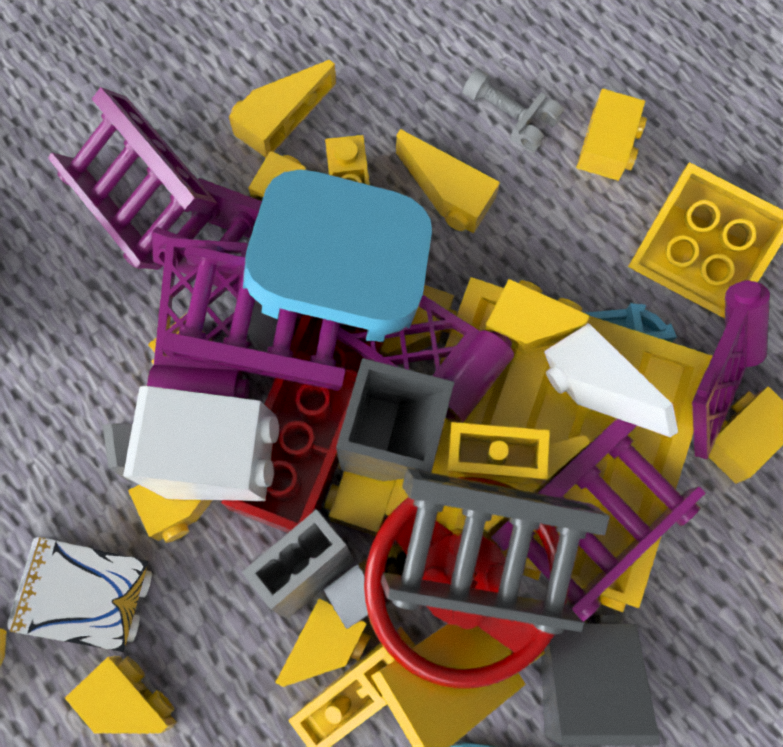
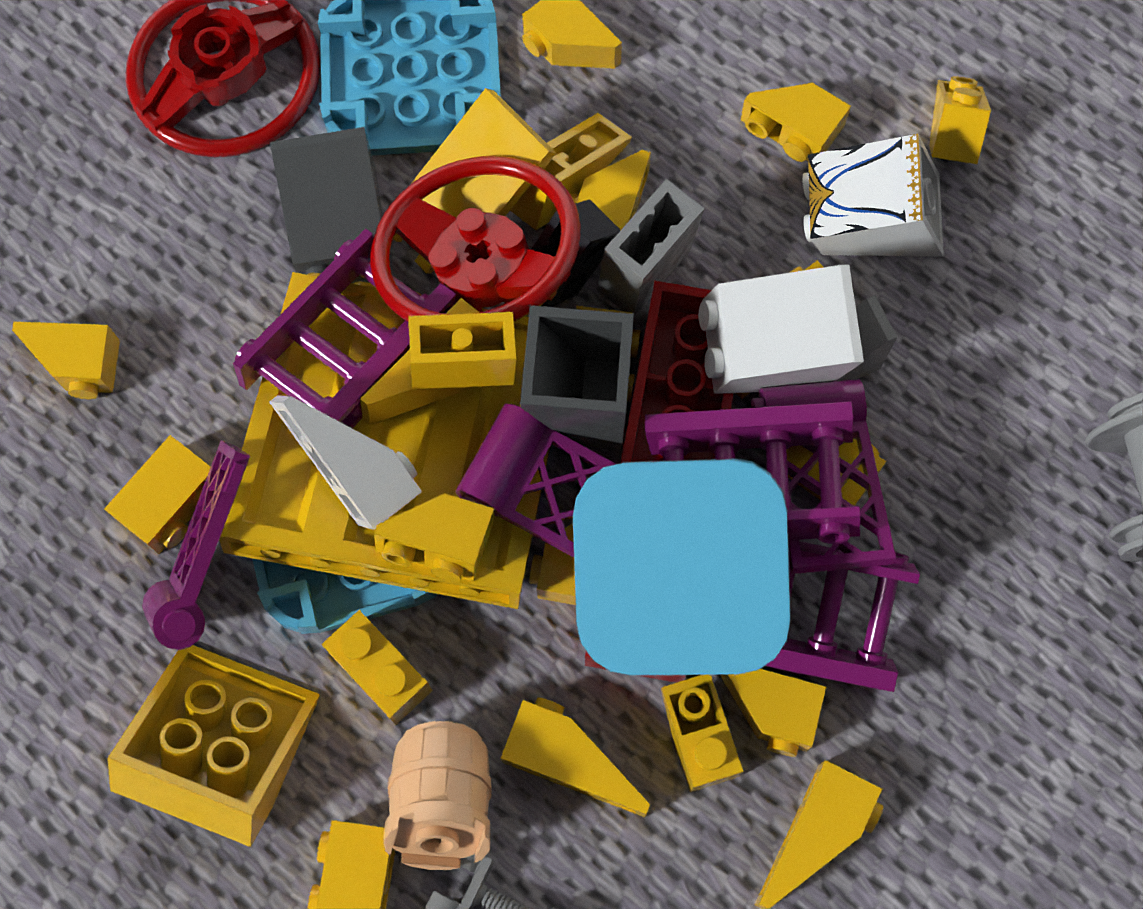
camera: 175 degrees right, 0 degrees up
(163, 168) = (958, 697): magenta fence -> none
(478, 504) = (455, 285): dark grey fence -> none
(548, 160) = (439, 796): none -> light nougat piece
(584, 266) = (377, 667): none -> yellow brick

